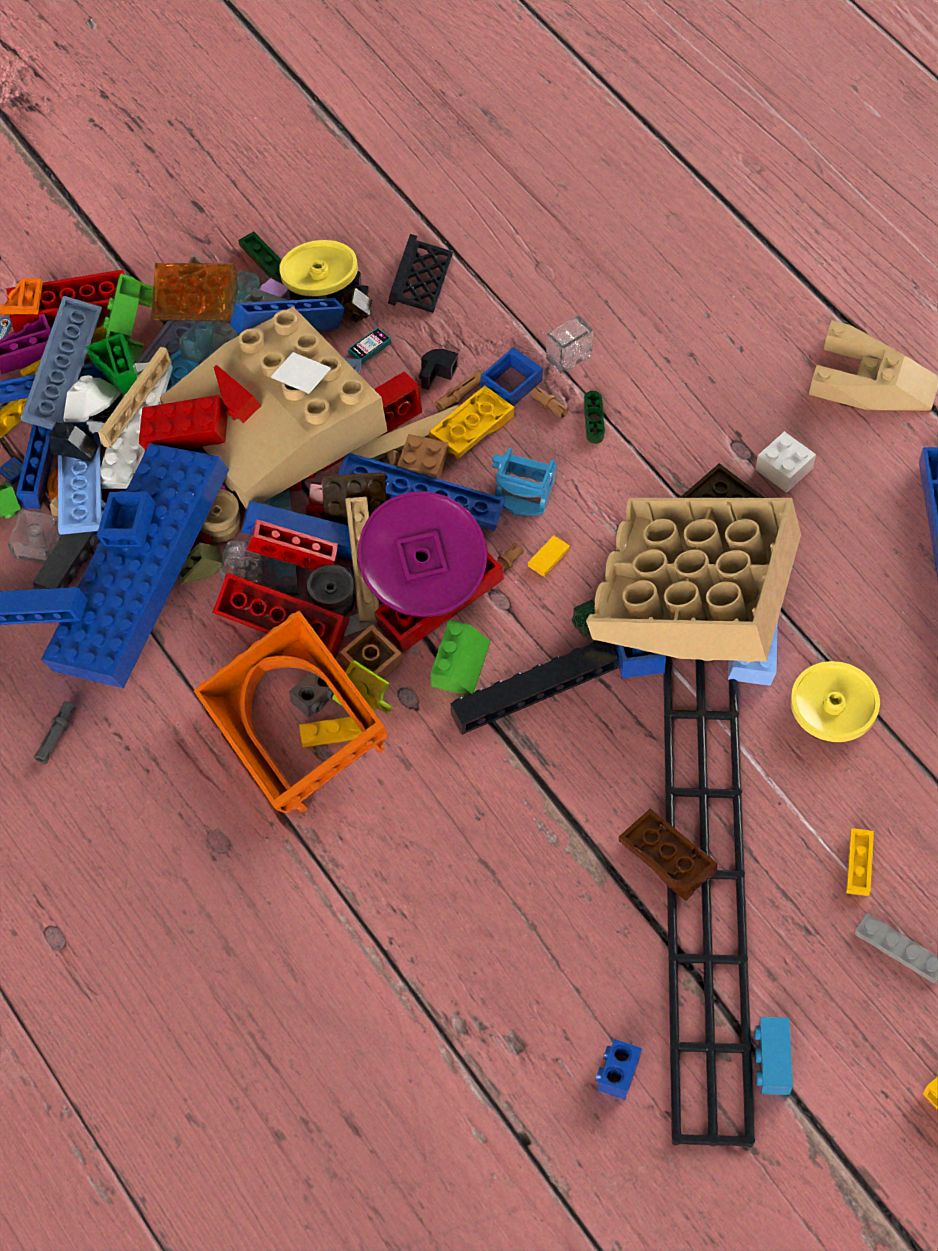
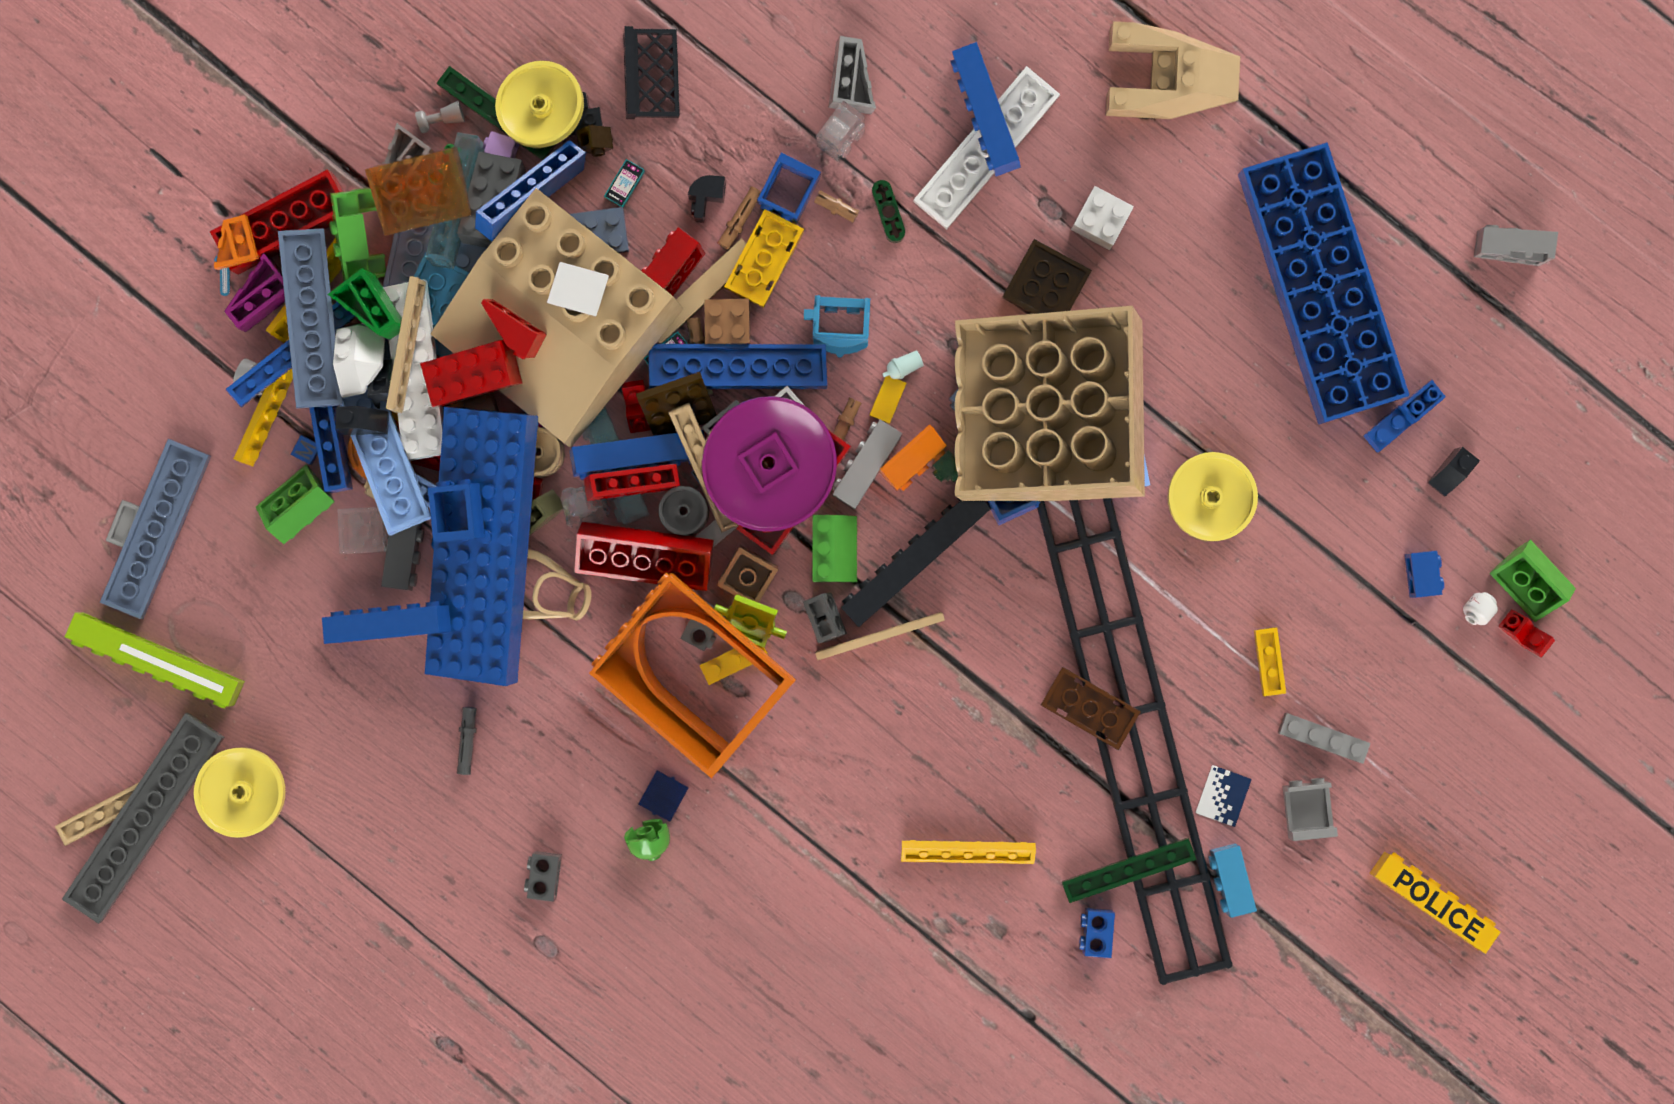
camera: 15 degrees left, 30 degrees up
(84, 868) = (548, 877): none -> dark grey brick
(193, 860) = (649, 840): none -> bright green cylinder
(204, 642) = (563, 574): none -> tan animal
(222, 830) = (663, 795): none -> clear blue piece
(241, 262) = (449, 114): none -> light grey piece
(432, 710) = (824, 617): none -> dark grey brick
(479, 741) = (878, 636): none -> tan tile
(507, 956) = (968, 852): none -> yellow plate
(512, 599) = (867, 463): none -> light grey brick
(555, 599) = (913, 459): none -> orange slope
(571, 531) = (903, 365): none -> light aqua piece
(593, 307) = (850, 77): none -> light grey wedge
(667, 1013) = (1129, 870): none -> dark green plate
(694, 390) = (966, 168): none -> white plate
(702, 357) = (986, 109): none -> blue brick
(784, 977) = (1223, 796): none -> sticker
(870, 1009) = (1308, 810): none -> light grey panel

